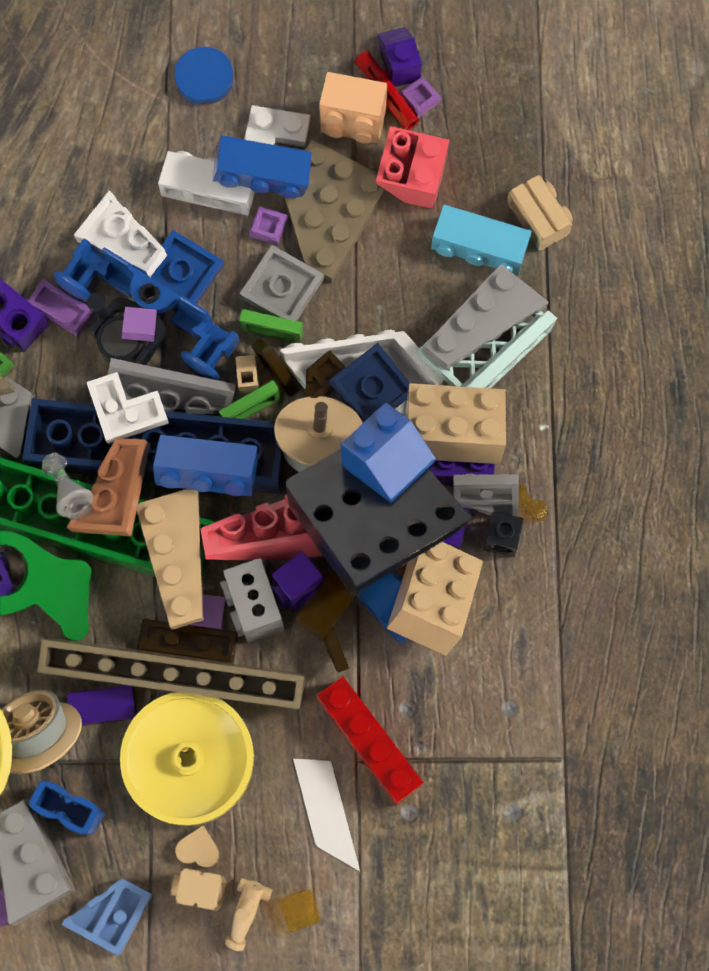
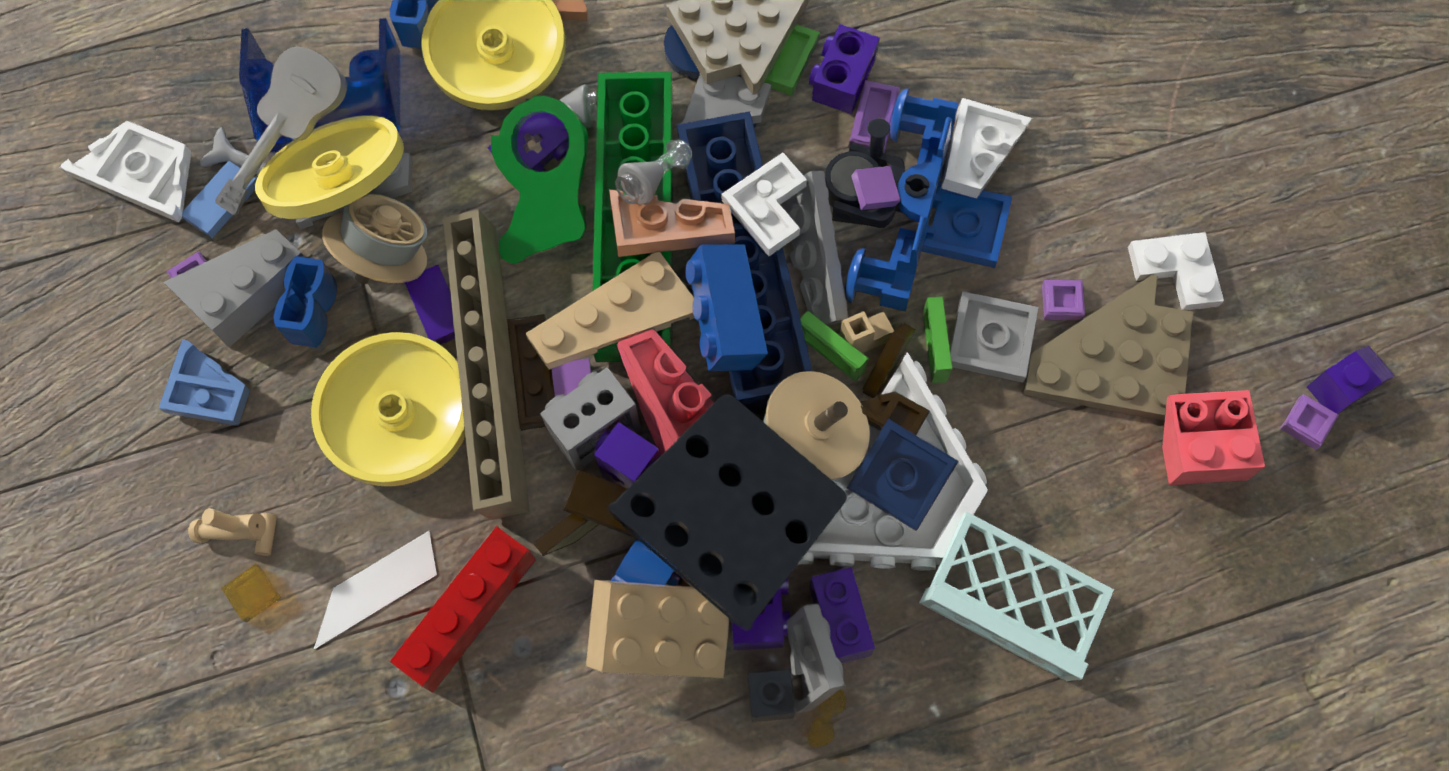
camera: 75 degrees right, 5 degrees down
(191, 181) = (1086, 216): white brick -> none
(198, 848) = (299, 458): tan tile -> none
(199, 889) = (241, 468): tan brick -> none
(204, 75) = (1218, 171): blue tile -> none
(261, 167) = (1126, 257): blue brick -> none
(353, 108) = (1254, 340): light nougat brick -> none
(386, 453) = (800, 499): blue slope -> none
(405, 116) = (1305, 367): red pin -> none
(459, 421) = (883, 583): tan brick -> none
(480, 239) = (1149, 552): medium azure brick -> none
(483, 317) = (1057, 589): light grey wing -> none
(540, 212) = (1221, 617): tan brick -> none

